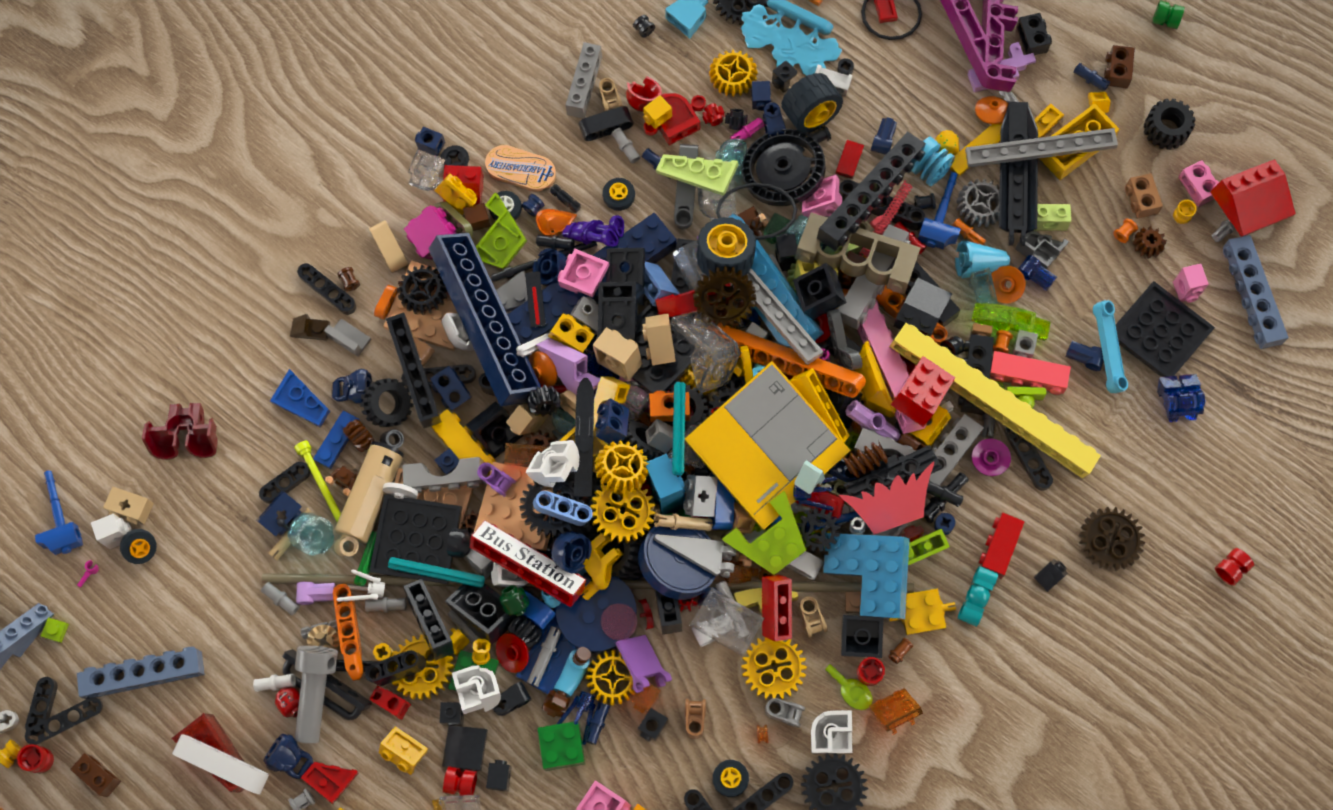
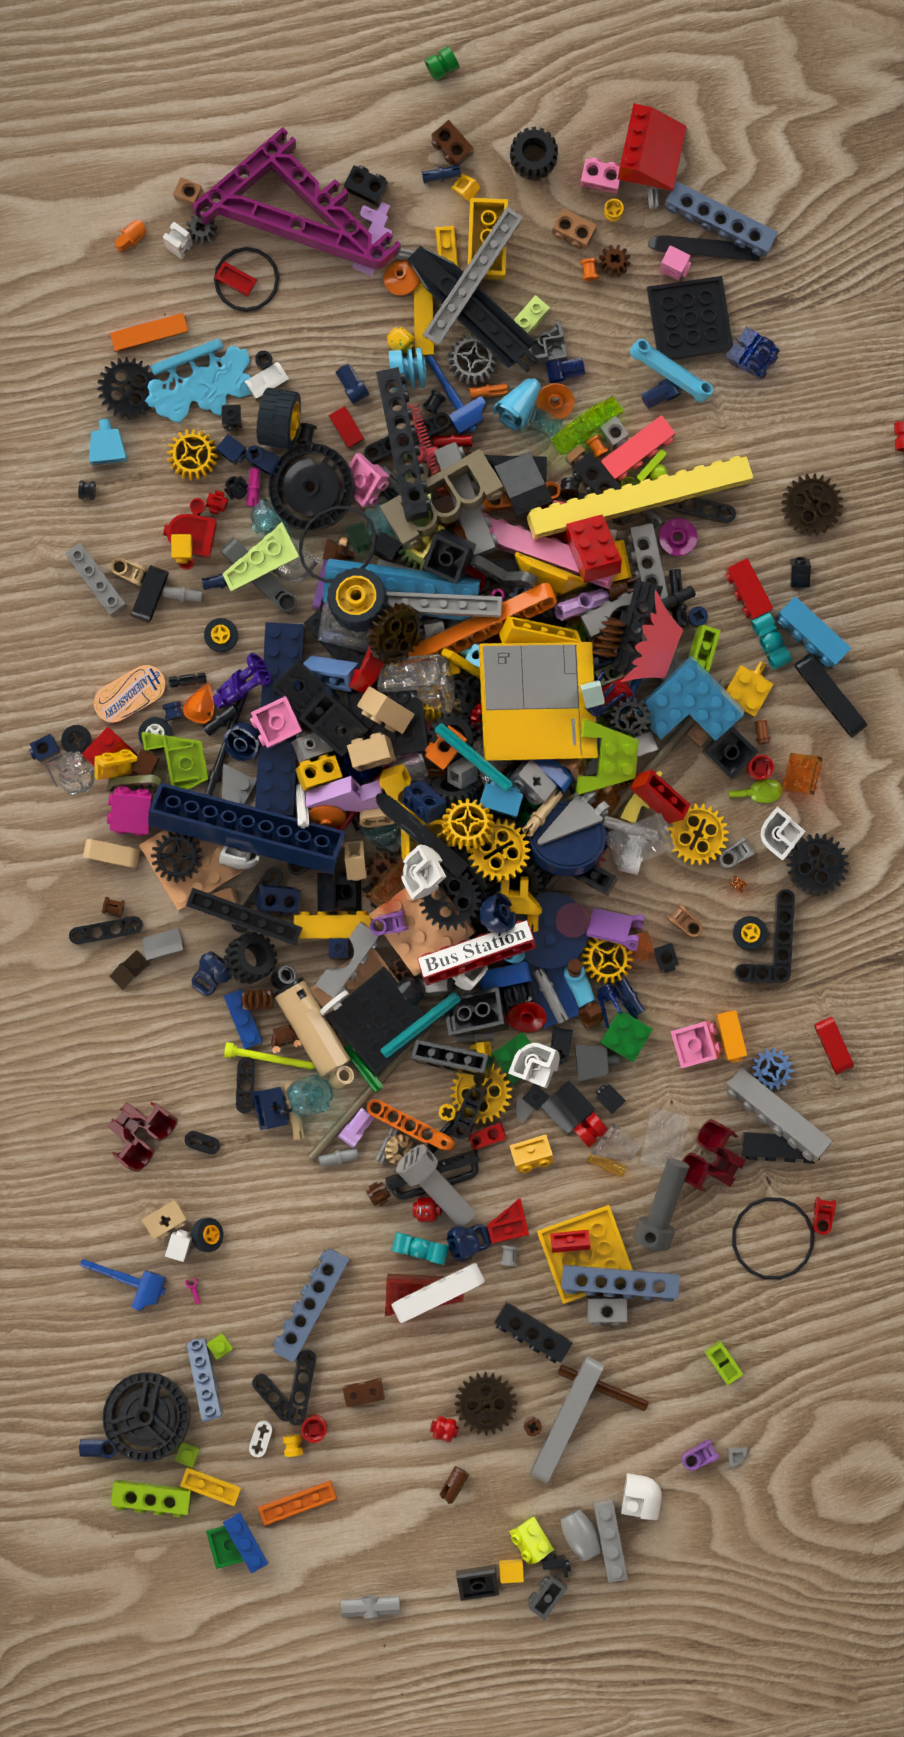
camera: 55 degrees left, 15 degrees up
(208, 486) = (204, 1138): none -> black beam
(252, 723) = (420, 1248): none -> teal piece
(273, 652) = (378, 1193): none -> reddish brown gear
(274, 682) = (402, 1209): white pin -> none
(299, 400) = (185, 1023): blue wing -> none
(376, 588) = (392, 1080): white plant -> none
(385, 302) = (159, 892): orange beam -> none
(385, 604) = (410, 1082): light grey pin -> none
(432, 715) = (523, 1110): none -> light grey tile
(481, 651) = (508, 1039): yellow bush -> none
(514, 600) = (494, 984): dark green head -> none
(518, 737) = (593, 1061): none -> dark grey torso
(535, 299) = (262, 775): black sticker -> none
(543, 400) = (357, 837): black gear -> none
(572, 508) = (455, 898): light blue beam -> none
(640, 96) = (152, 544): red helmet -> none
(648, 613) = (579, 892): red piece -> none
(812, 618) = (685, 775): tan piece -> none
(857, 526) = (646, 689): white pin -> none
(913, 532) = (684, 647): clear red plate -> none
(978, 681) = (830, 695): none -> black beam
(1014, 622) = (812, 633): none -> dark azure brick
(1225, 300) = (703, 247): none -> black piece

